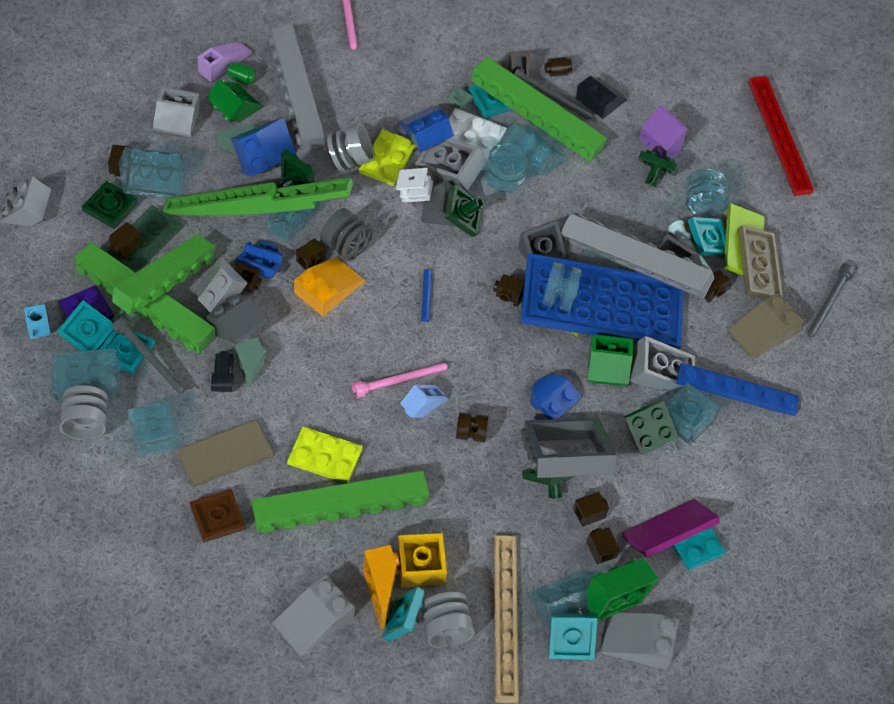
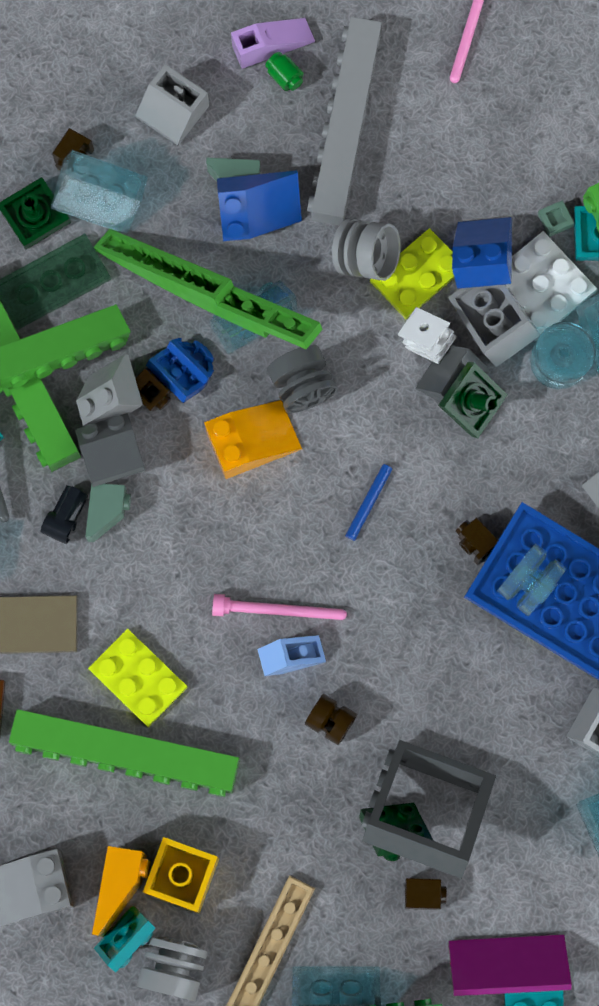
camera: 35 degrees right, 20 degrees up
(125, 240) = (24, 279): dark brown brick -> none
(233, 101) = (255, 112): green slope -> none
(294, 171) = (278, 263): dark green plate -> none
(311, 254) = (248, 387): dark brown brick -> none
(543, 241) = (554, 491): dark grey slope -> none
(553, 395) = (457, 716): blue slope -> none
(602, 545) = (413, 948): dark brown brick -> none
(610, 360) = (553, 699): green slope -> none
(651, 426) = (554, 818): dark green plate -> none

